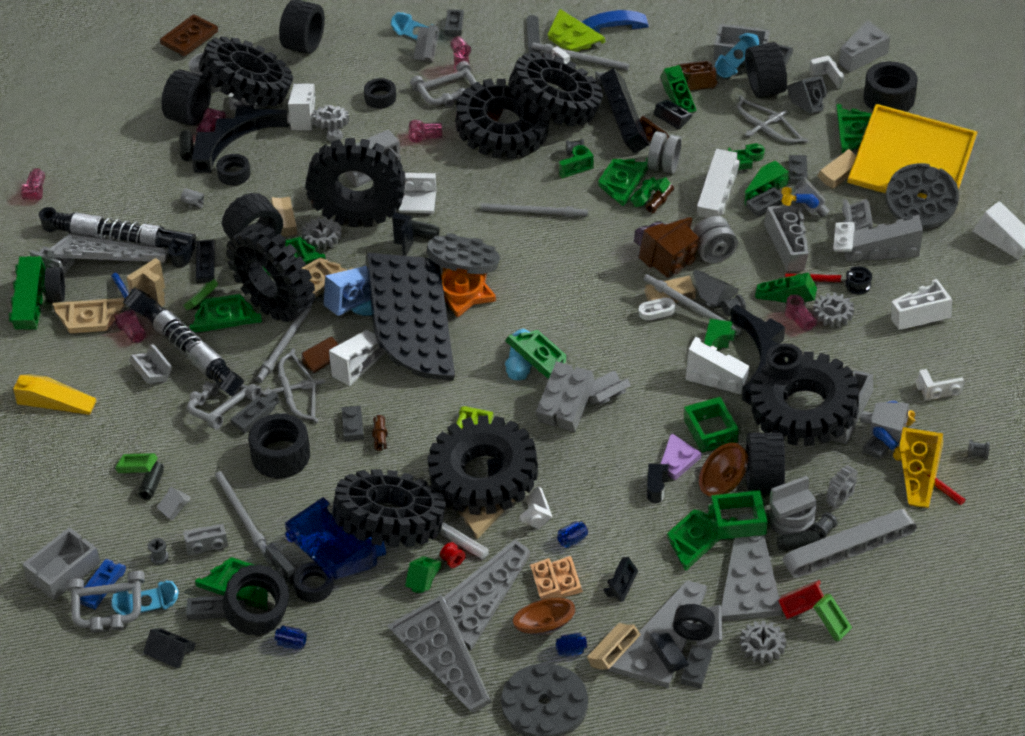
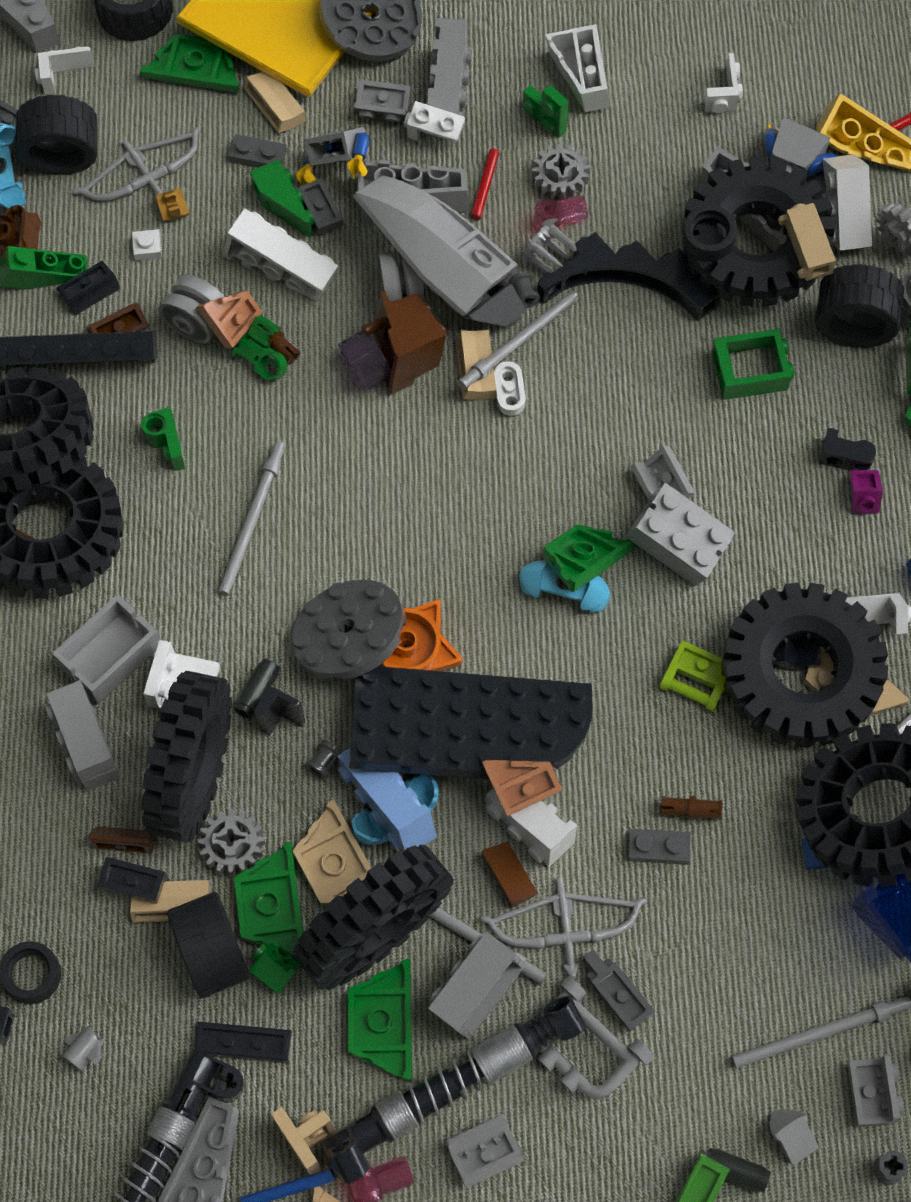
camera: 80 degrees left, 20 degrees up
(201, 294) = (332, 1055): bright green tile -> none
(244, 339) = (476, 984): none -> light grey piece
(279, 462) = (726, 924): black tyre -> none
(290, 194) = (132, 880): none -> black panel
(370, 332) = (521, 782): none -> nougat wing
(418, 130) = (22, 655): clear pink piece -> none
(430, 156) = (107, 648): none -> light grey piece
(570, 145) = (129, 434): dark grey bush -> none
(622, 178) = (218, 381): green wing -> none
(630, 494) = (865, 491): none -> magenta bracket
(661, 164) = (230, 316): none -> nougat wing
(679, 456) = (797, 418): lavender wing -> none
(712, 133) = (147, 244): none -> white plate
(715, 369) = (656, 335): white wedge -> none
(719, 334) = (583, 324): green arch -> none
(723, 469) = (859, 379): dark orange dish -> none
(741, 243) = (436, 242): none -> light grey wedge
(743, 137) = (172, 205): none -> pearl gold tile
(746, 156) = (209, 213): green piece -> none
(760, 304) = (543, 237): none -> light grey piece
(782, 288) = (511, 214): green slope -> none
(792, 410) = (809, 241): none -> tan brick
(808, 94) = (109, 101): dark grey slope -> none
(854, 448) = (849, 195): none -> white wedge
(859, 280) = (508, 130): black wheel -> none
(879, 291) = (548, 108): none -> green plate
(978, 449) = (843, 71): dark grey bush -> none

